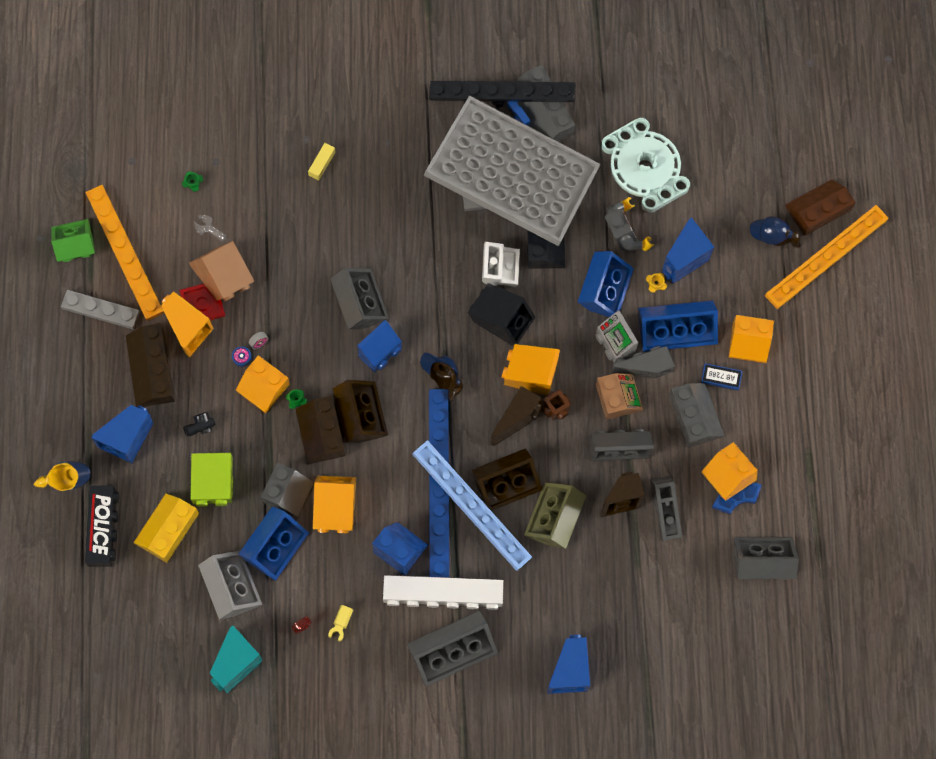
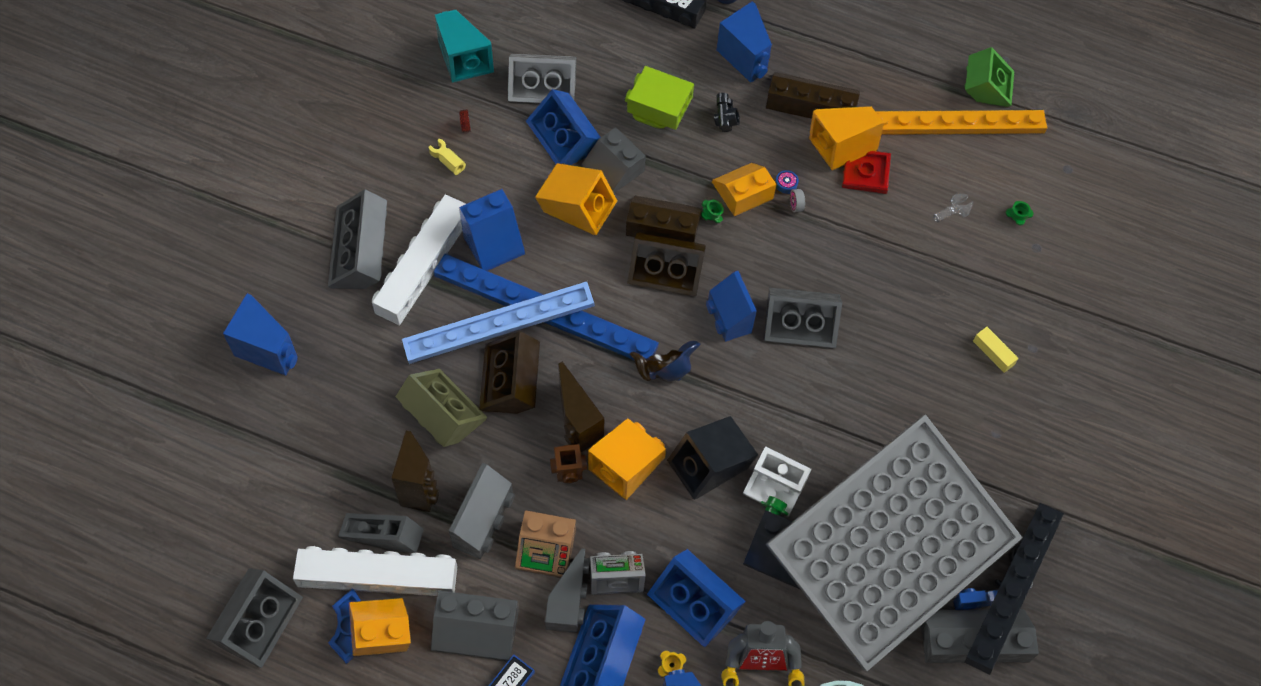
camera: 115 degrees right, 10 degrees down
(100, 309) = (899, 79): light grey plate -> none
(167, 527) = (628, 47): yellow slope -> none
(223, 271) = (892, 191): medium nougat slope -> none
(520, 257) = (775, 506): none -> green plate
(695, 495) = (374, 572): none -> white brick

